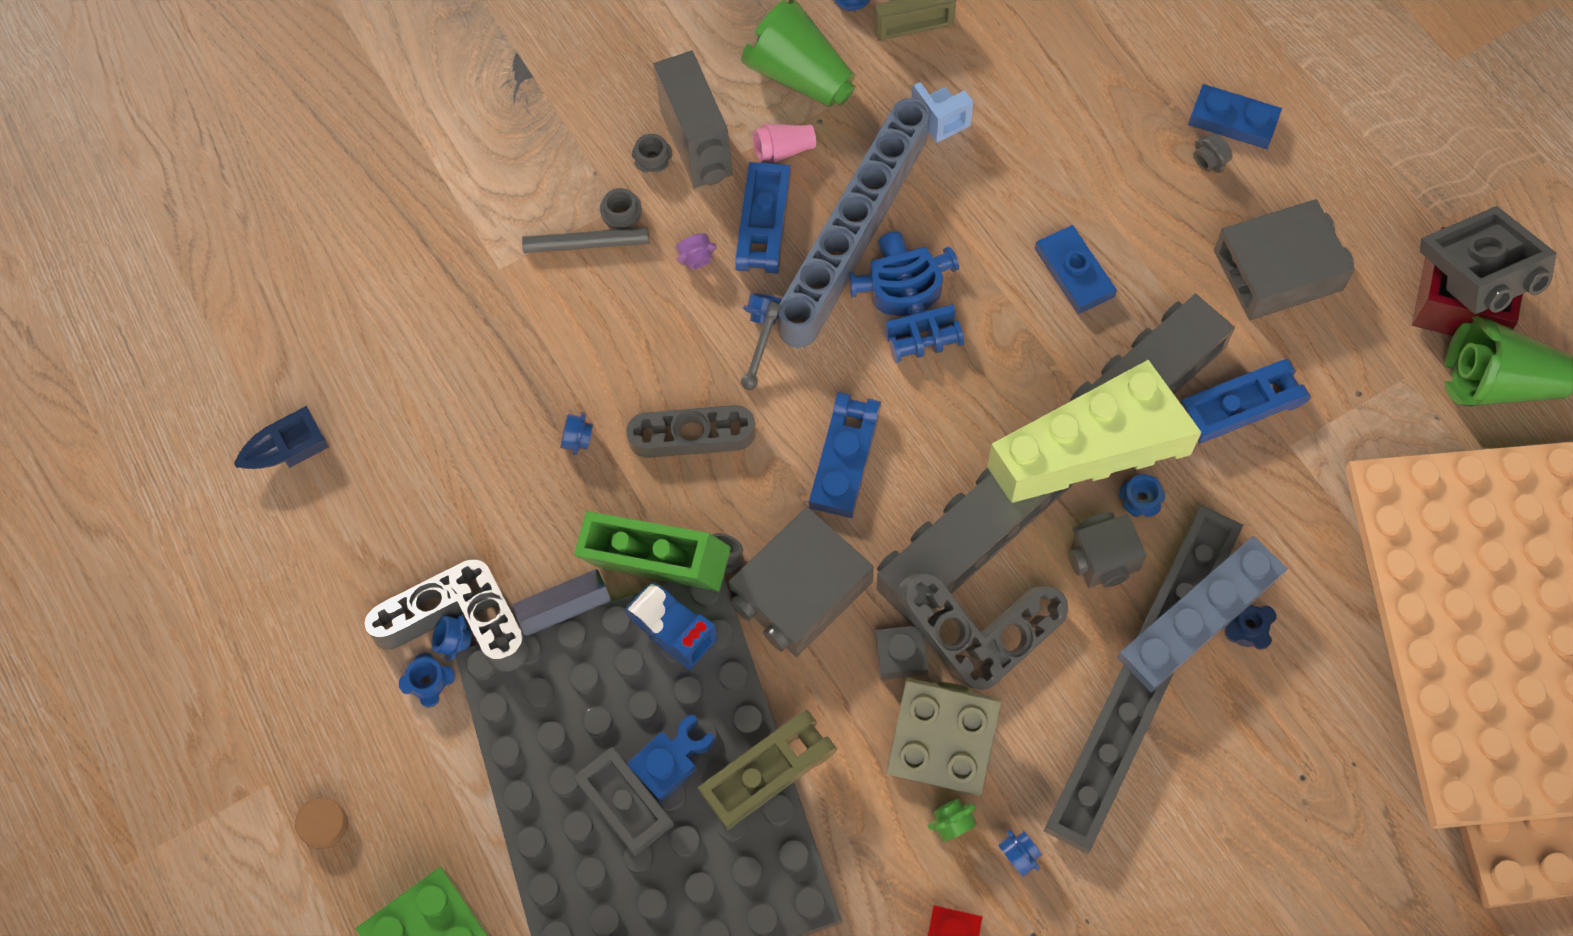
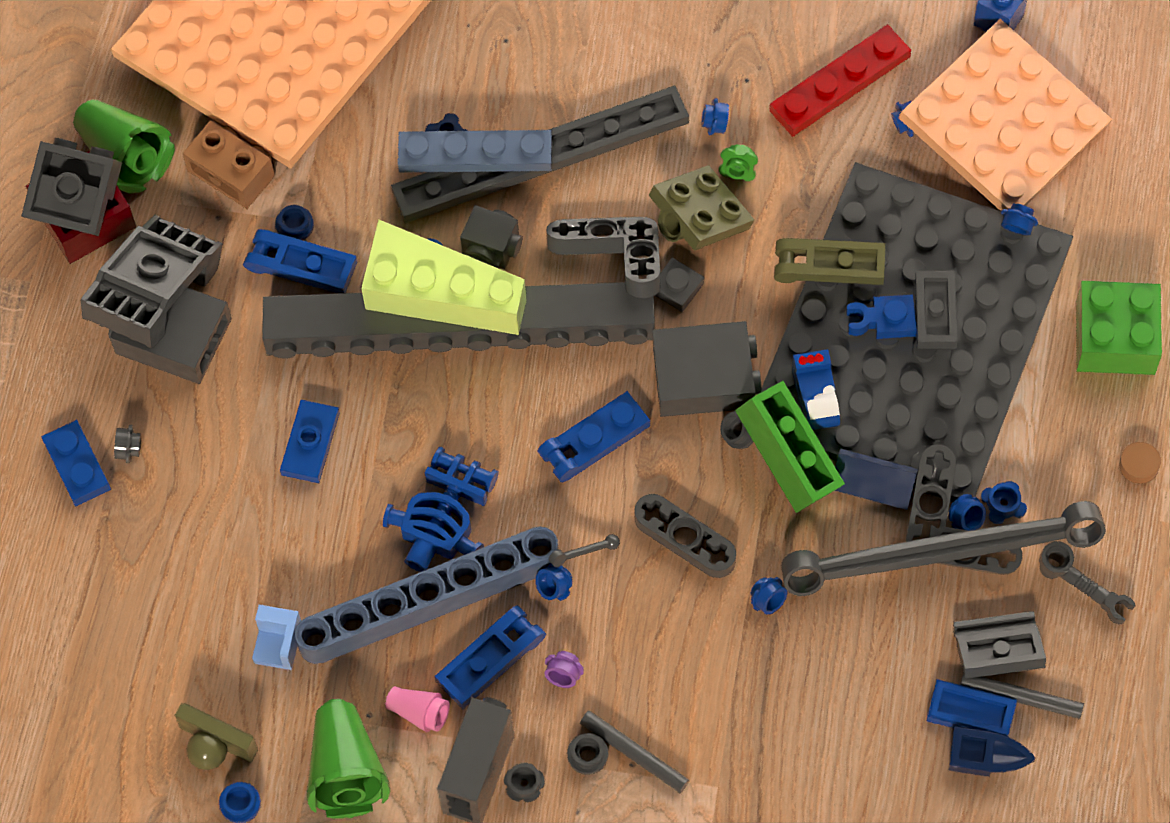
camera: 140 degrees left, 0 degrees up
(288, 521) = (1026, 696): none -> dark grey bar
(325, 476) = (970, 708): none -> blue tile
(325, 647) = (1064, 556): none -> dark grey brick
(336, 542) = (999, 645): none -> dark grey plate
(435, 579) = (943, 548): none -> dark grey piece
(1288, 431) = (294, 222): none -> dark blue plate
(1341, 263) = (148, 278): none -> dark grey plate
(1401, 427) = (229, 163): none -> medium nougat brick

